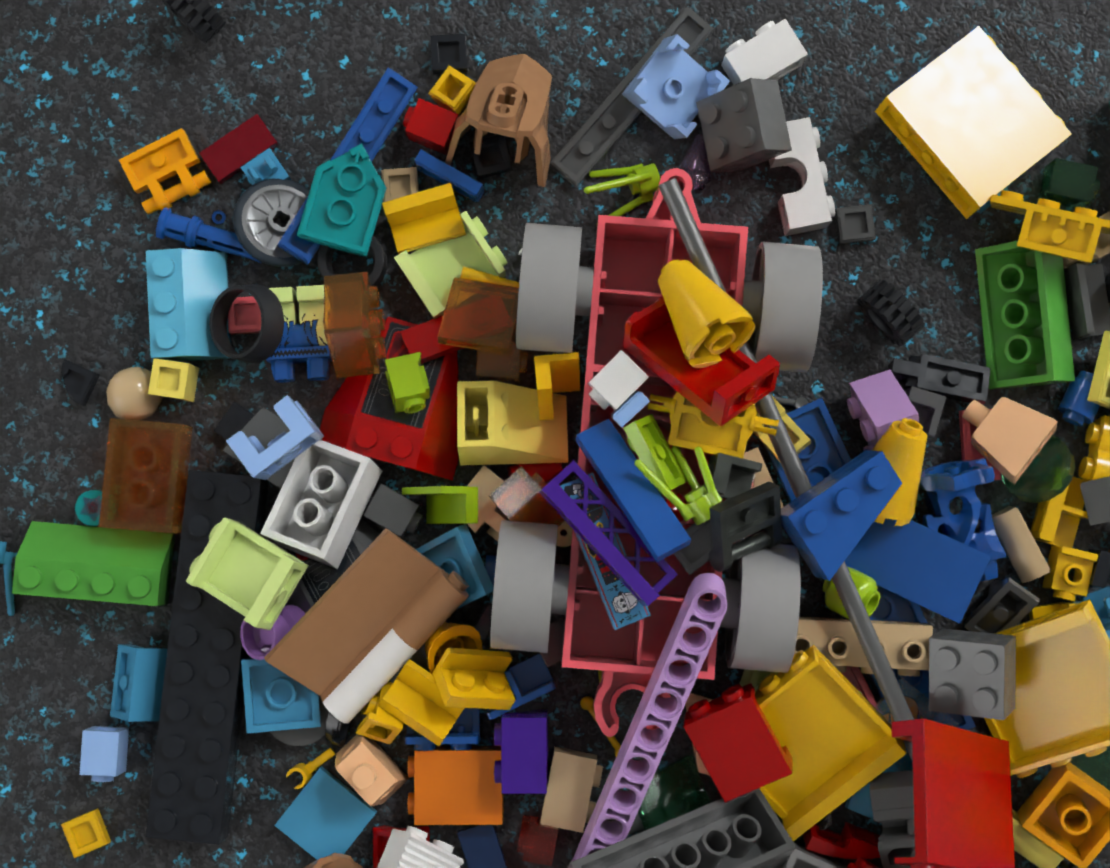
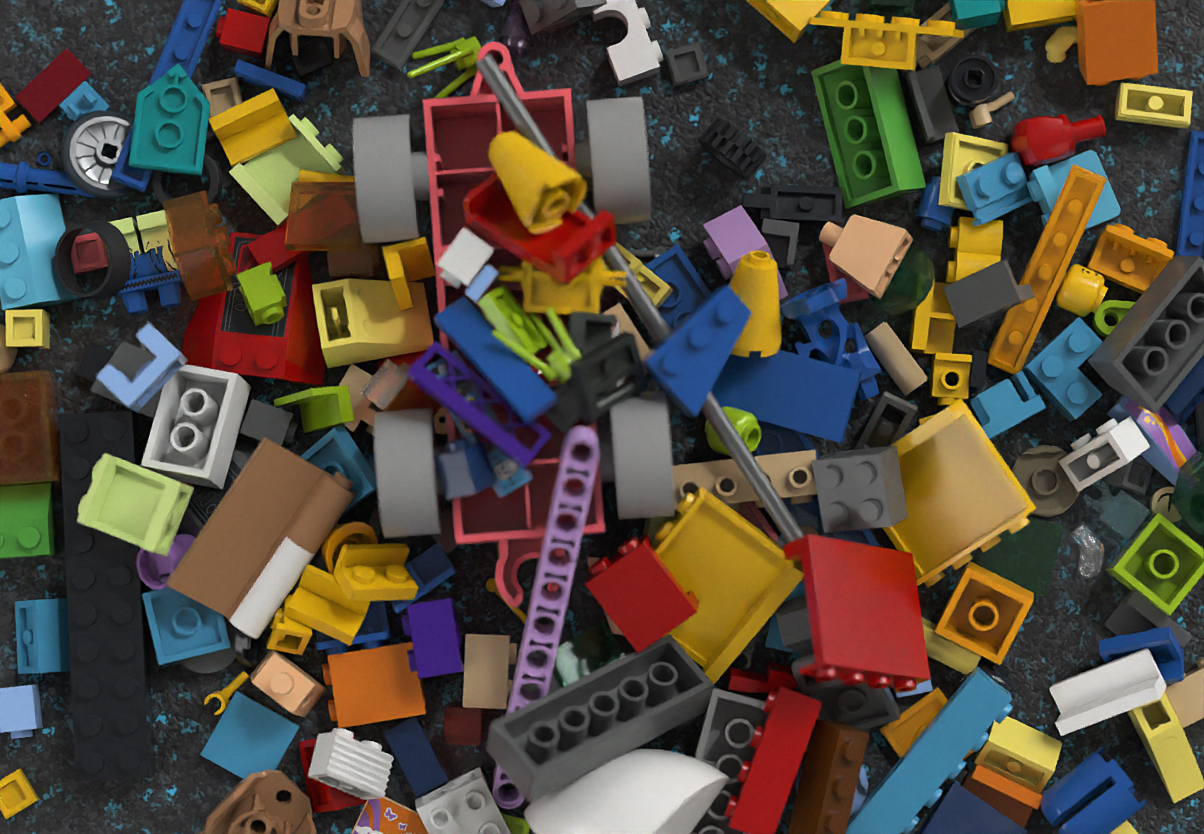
camera: 15 degrees left, 0 degrees up
(583, 596) = (464, 468): none -> dark blue brick

